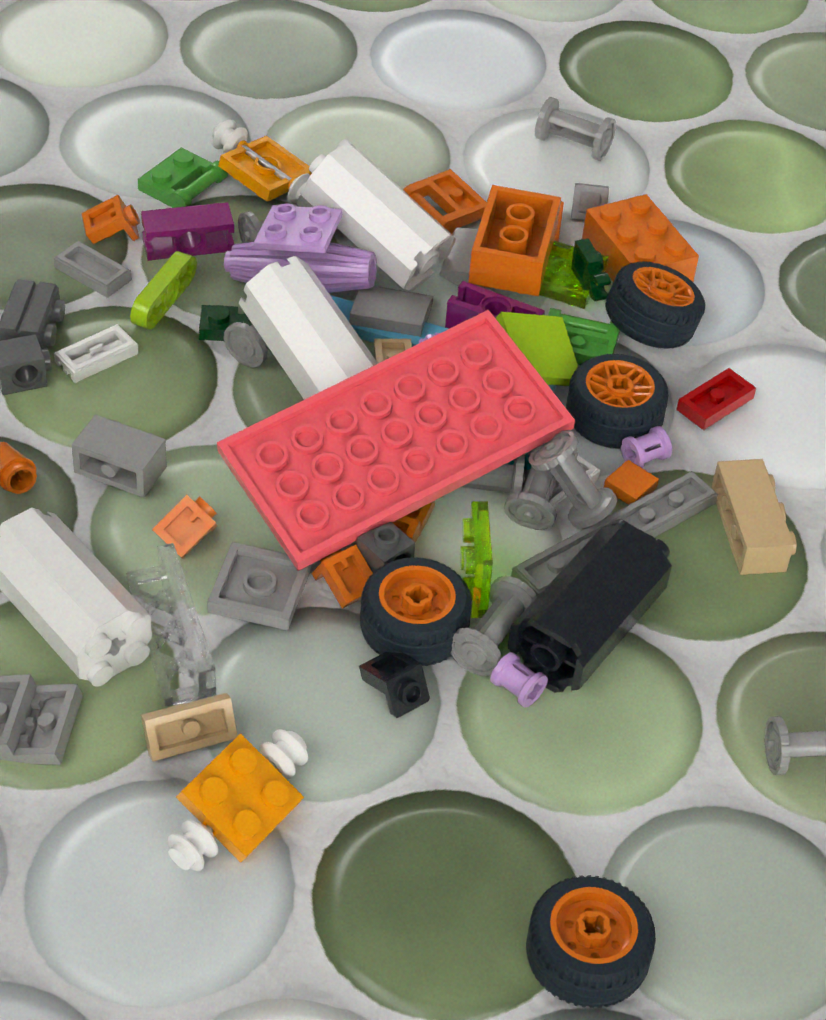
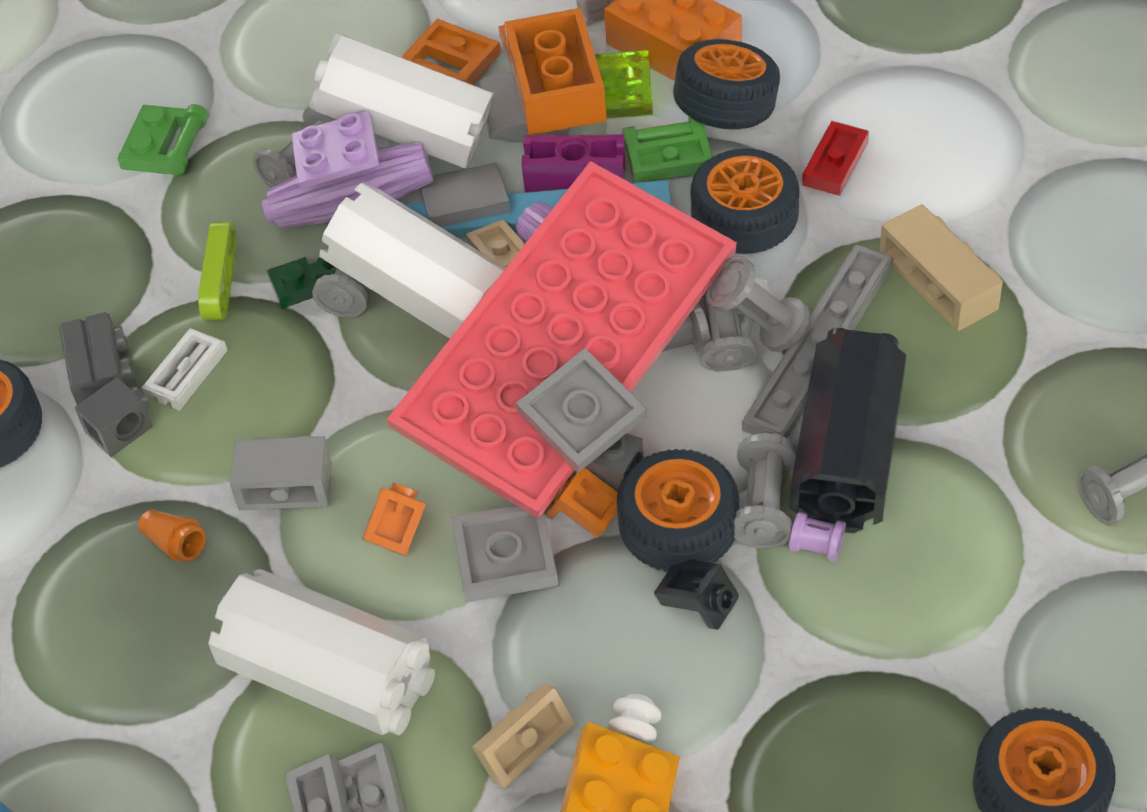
camera: 15 degrees left, 5 degrees up
(92, 269) = (126, 277): light grey tile -> none
(109, 218) = (115, 215): orange bracket -> none
(188, 230) = (205, 195): magenta piece -> none
(188, 626) = (456, 625): clear fence -> none
(260, 164) = (242, 90): light orange plate -> none
(372, 496) = (581, 410): none -> light grey plate
(477, 557) = (711, 423): clear neon green plate -> none
(543, 343) = (647, 168): lime tile -> none
(588, 269) = (640, 71): dark green plate -> none
(631, 482) = (803, 281): orange tile -> none
(647, 447) = (799, 238): lavender bush -> none

